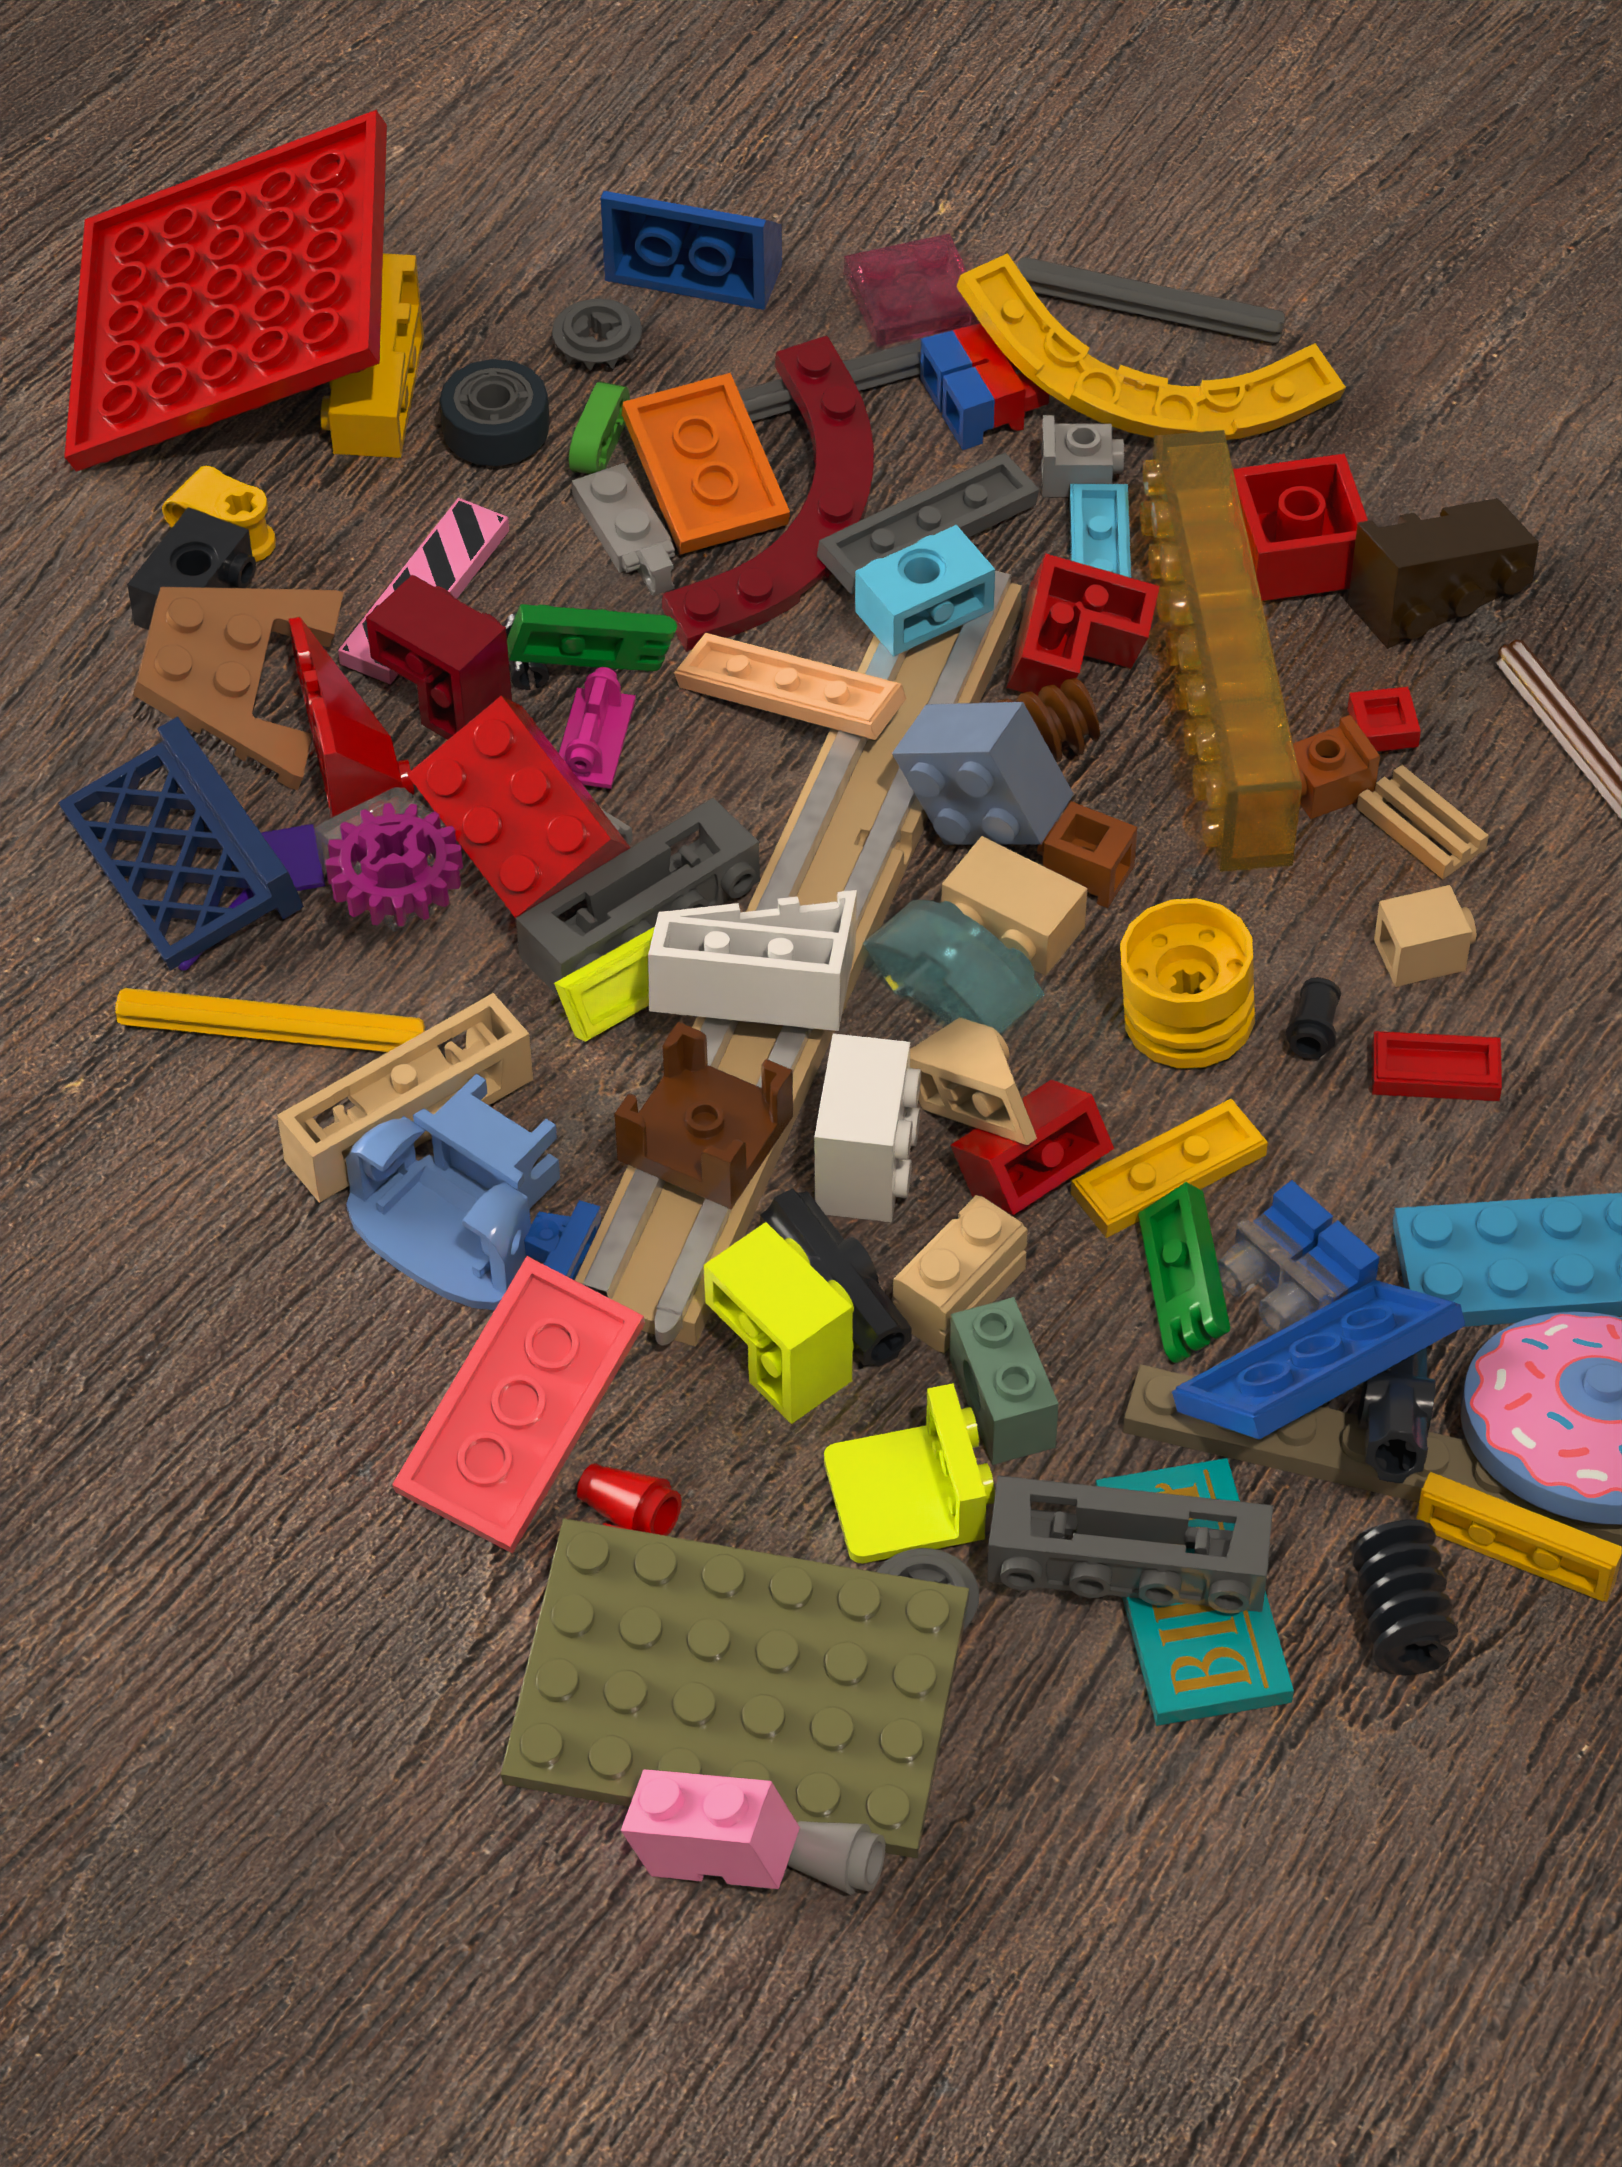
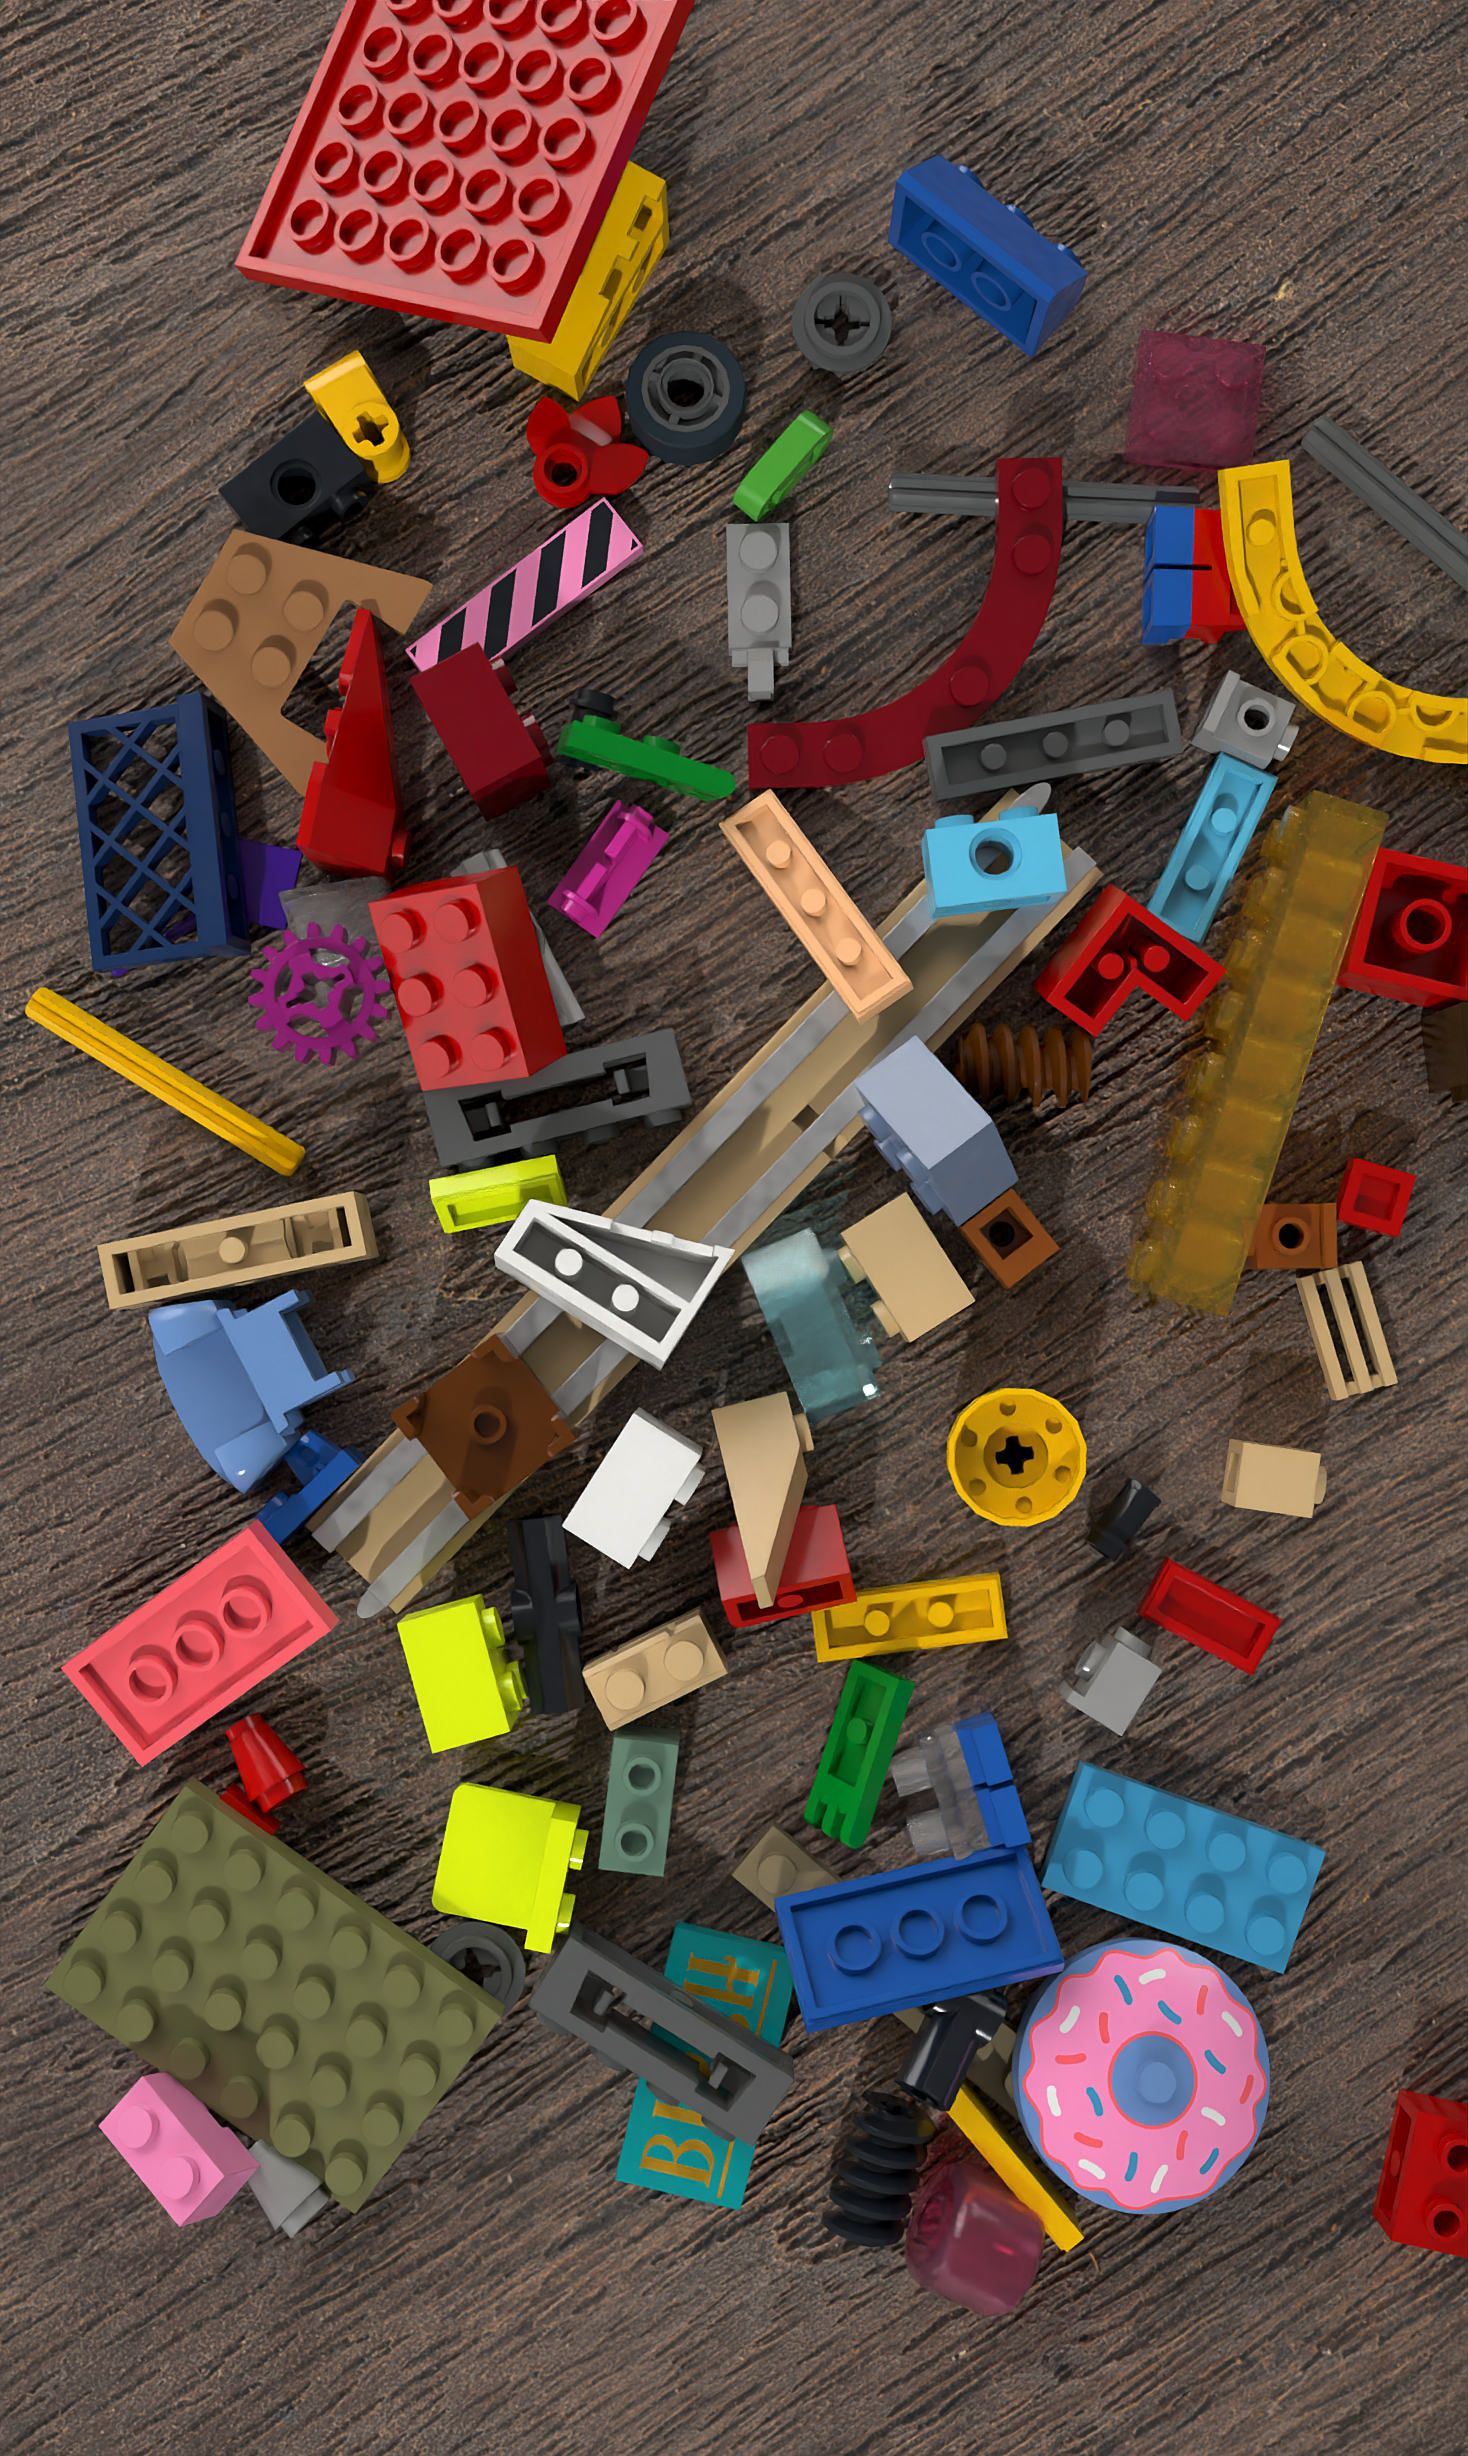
camera: 25 degrees right, 35 degrees up
(422, 481) = (586, 445): none -> red plate
(705, 463) = (865, 568): orange plate -> none
(1378, 1134) = (1112, 1679): none -> light grey brick
(1528, 1603) = (973, 2240): none -> clear pink head

